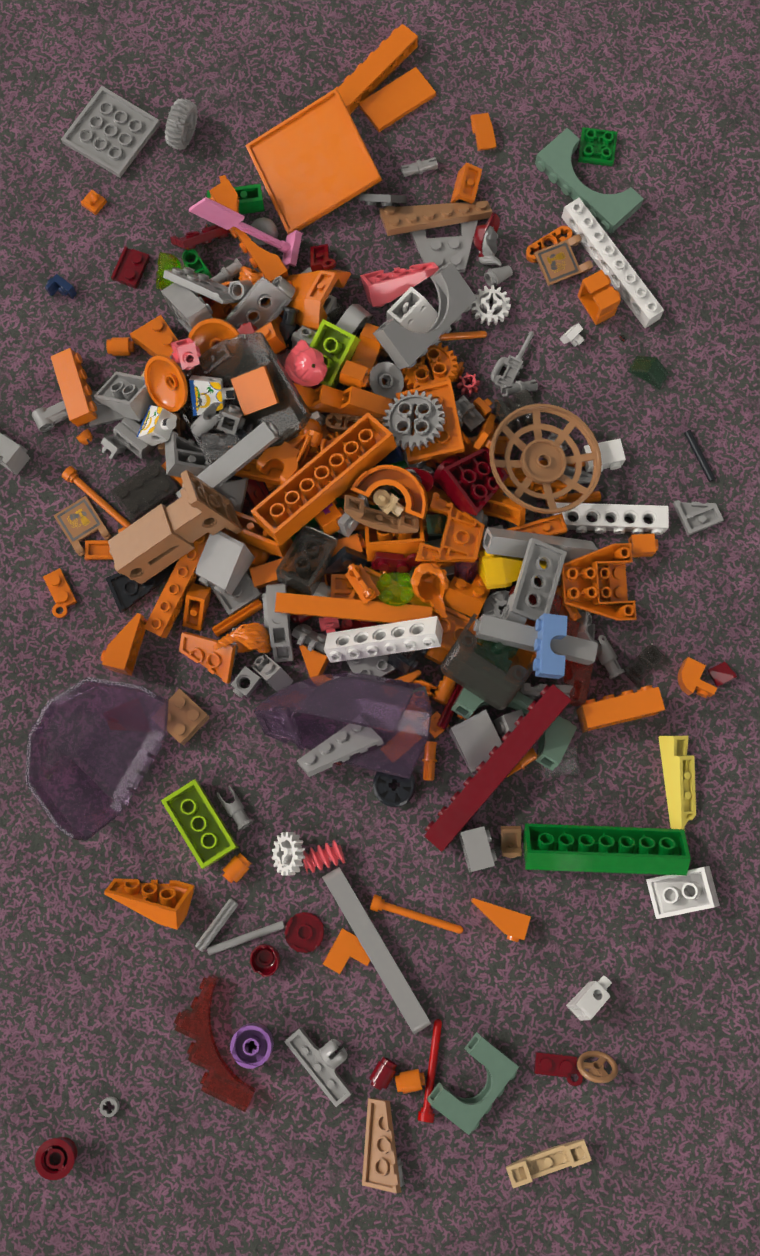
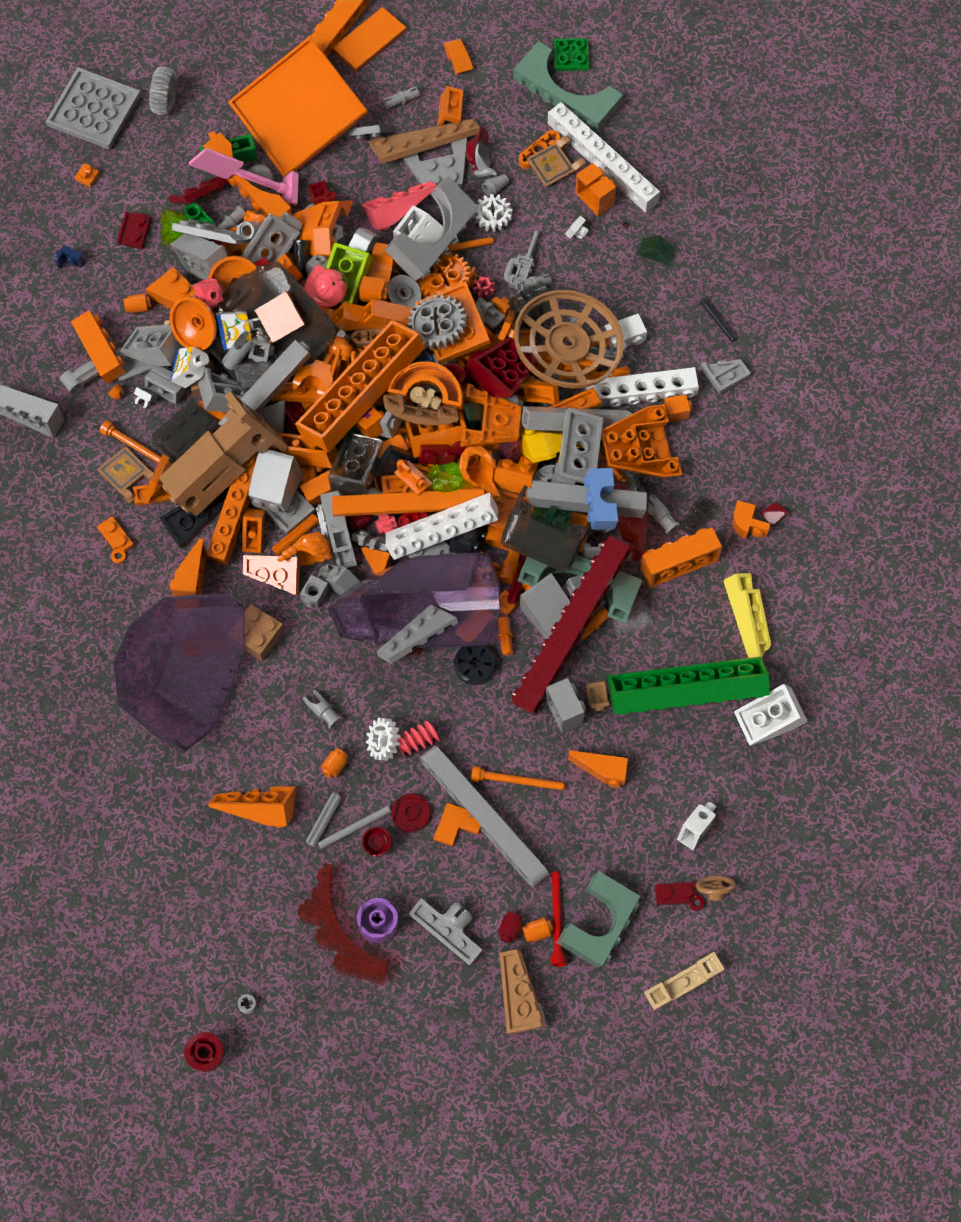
camera: 10 degrees left, 10 degrees down
(113, 529) = (155, 481): none -> orange wing
(199, 824) = (291, 726): lime brick -> none

